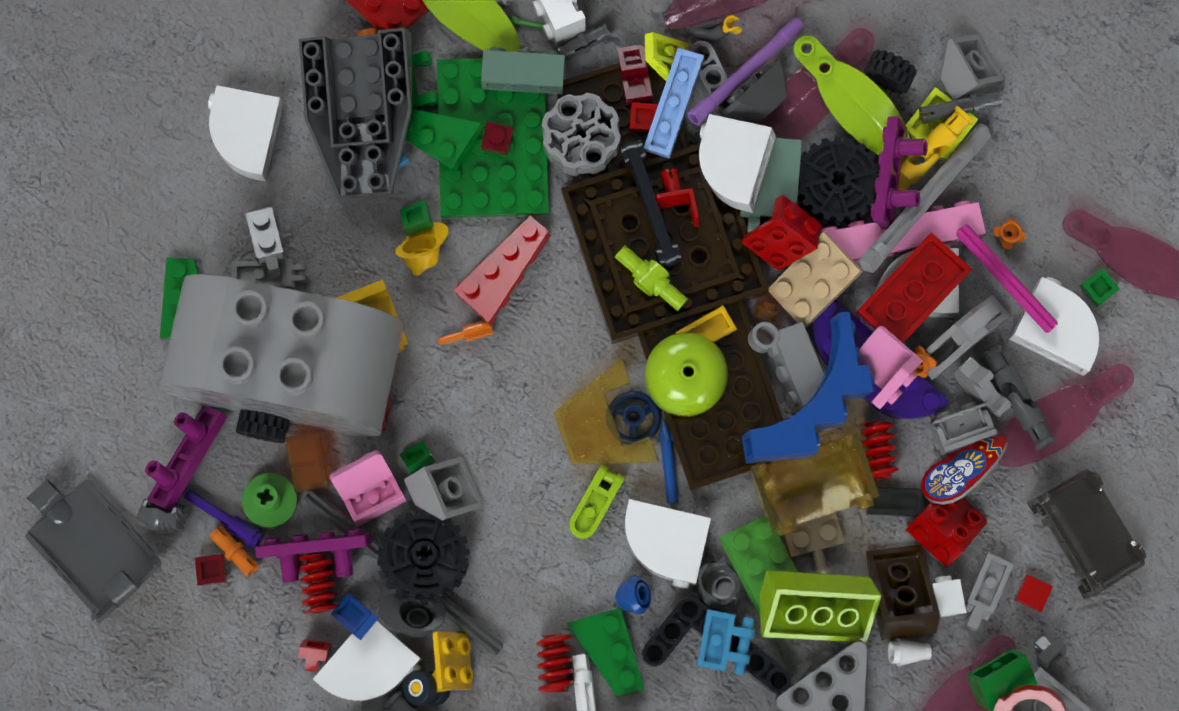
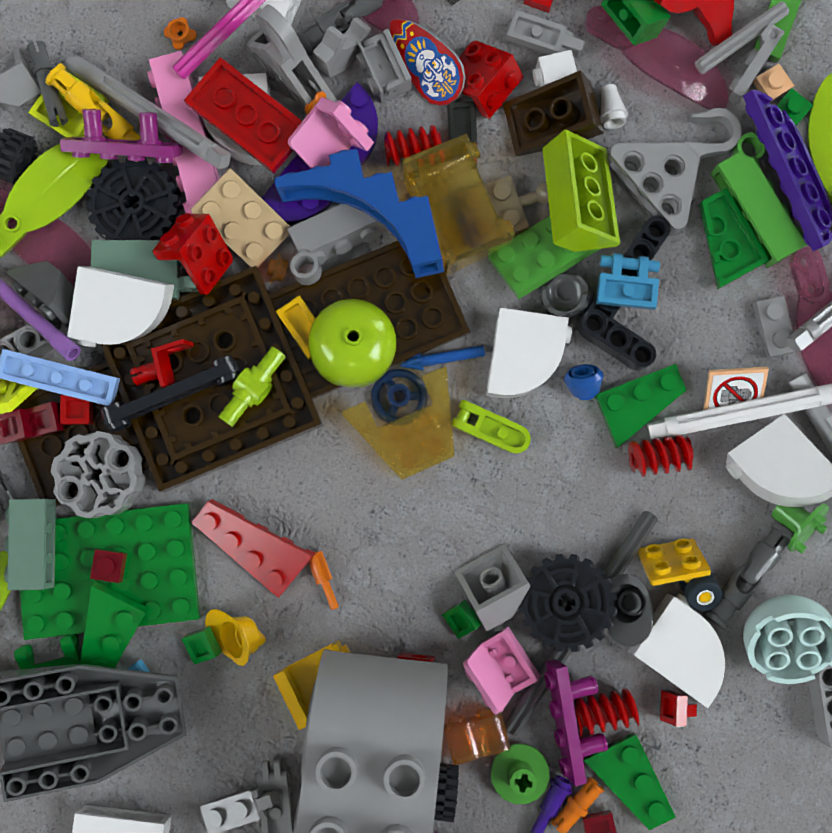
camera: 90 degrees left, 5 degrees up
(252, 606) = (633, 780): none -> green wing
(354, 616) = (637, 669): blue tile -> none

